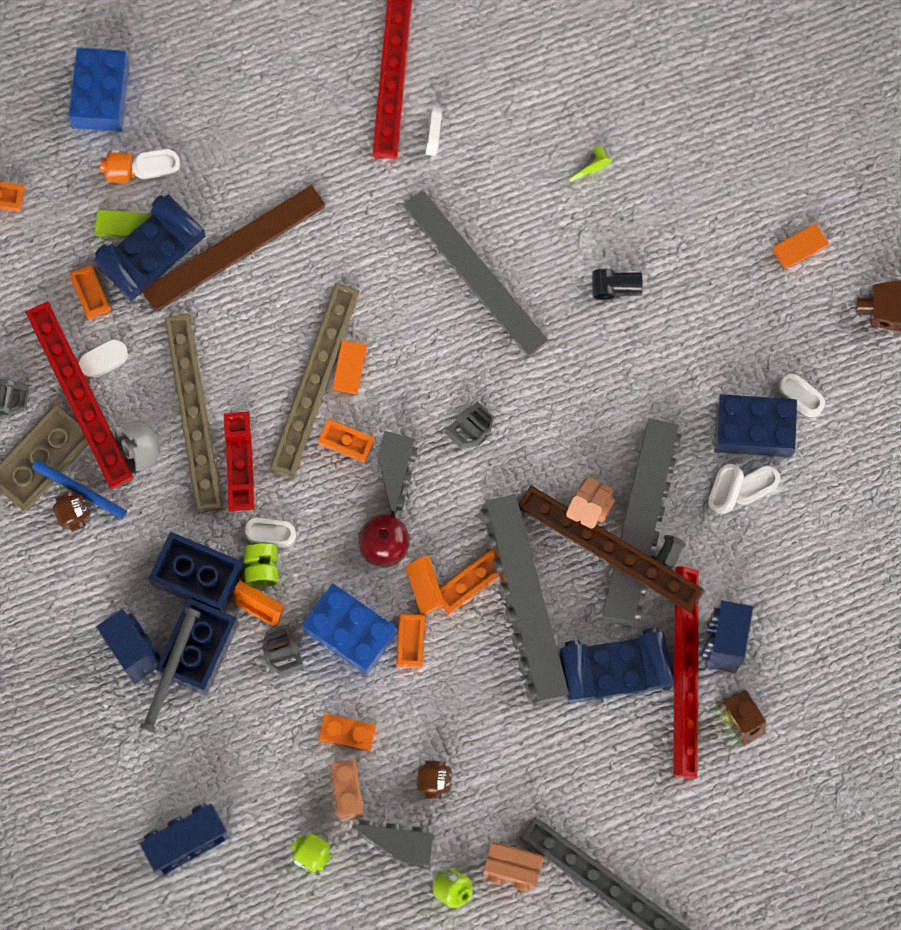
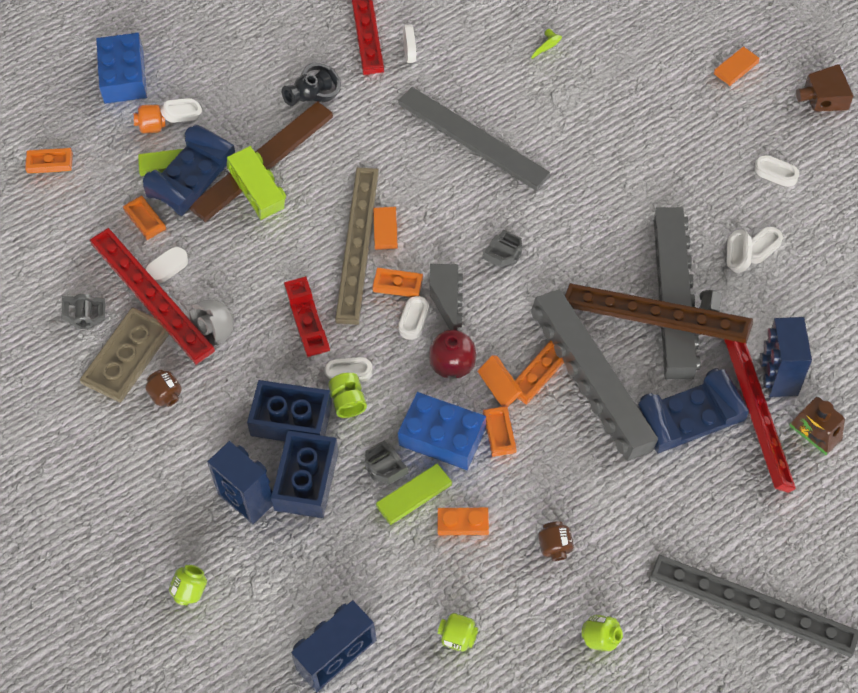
camera: 10 degrees left, 15 degrees down
(55, 739) = (187, 584): none -> lime head
(79, 489) = (178, 373): blue bar -> none
(169, 670) = (275, 547): dark grey bar -> none
(193, 413) = (257, 293): dark tan tile -> none
(220, 281) = (256, 182): none -> lime brick
(257, 603) = (352, 428): orange tile -> none
(304, 167) = (309, 86): none -> black piece
(305, 690) = (413, 494): none -> lime tile
(347, 790) = (477, 568): nougat brick -> none
(354, 485) = (413, 317): none -> white tile
(404, 846) = (543, 607): dark grey slope -> none
(513, 866) = (652, 602): nougat brick -> none
(591, 503) = (628, 281): nougat brick -> none
(608, 284) = (589, 121): black piece -> none
(755, 425) = (747, 197): dark blue brick -> none

